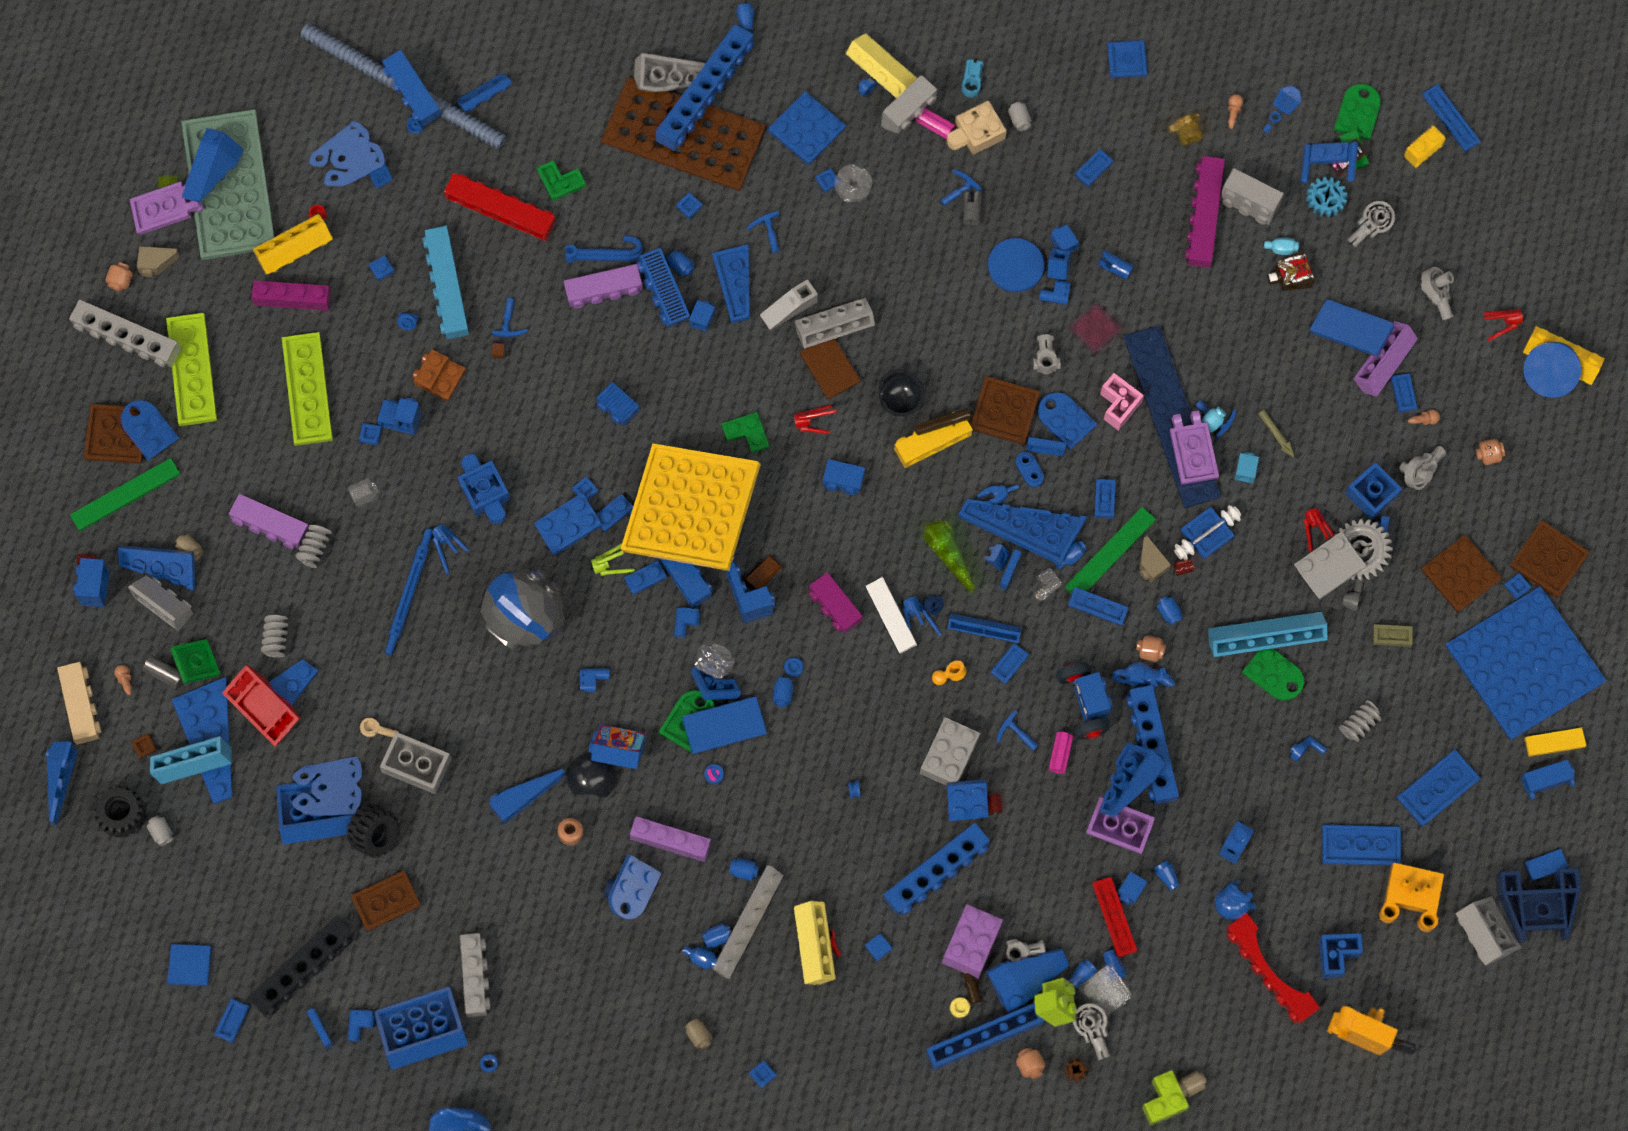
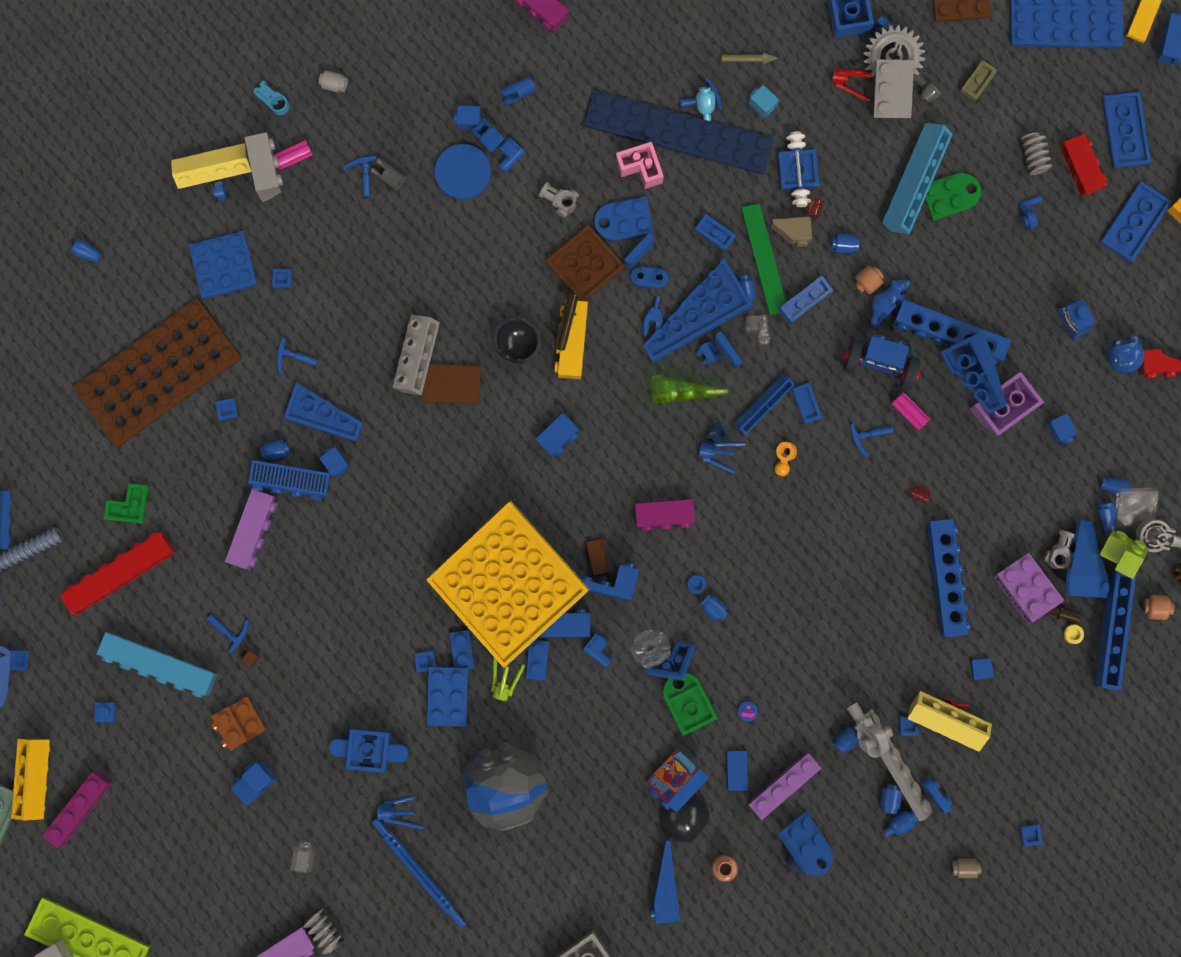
camera: 55 degrees left, 10 degrees up
(307, 389) = (174, 848): lime plate -> none
(317, 209) = (11, 736): red plate -> none
(370, 434) = (252, 817): blue tile -> none
(407, 321) = (169, 719): blue plate -> none
(573, 253) = (223, 509): blue piece -> none
(589, 676) = (595, 764): blue piece -> none
(617, 404) = (367, 585): blue brick -> none
(658, 796) = (737, 771): none -> blue tile
(664, 73) = (91, 354): light grey wedge -> none
(724, 725) = (712, 676): blue tile -> none
(736, 38) = (100, 271): blue brick -> none
(748, 965) = (941, 801): none -> blue plate
(749, 427) = (459, 487): green plate -> none
(757, 876) = (870, 736): none -> light grey pin
(787, 915) = (907, 727): none -> blue tile
(790, 304) = (375, 382): light grey slope -> none
(802, 419) = (484, 436): red plant -> none
(854, 789) = (835, 602): blue bush -> none
(856, 174) = (303, 268): clear plate -> none
(891, 615) = (703, 473): white tile -> none
(949, 752) = (855, 503): light grey brick -> none
(967, 800) = (905, 514): blue plate -> none
(977, 129) = (321, 124): tan brick -> none
(1094, 168) = (419, 52): blue plate -> none
(1095, 328) = (561, 143): clear pink plate -> none
(1114, 917) = (1076, 458): red plate -> none
(1167, 874) = (1065, 392): blue cone -> none
(1193, 450) = (722, 133): medium lavender tile -> none
(1379, 768) = (1083, 165): none -> red brick

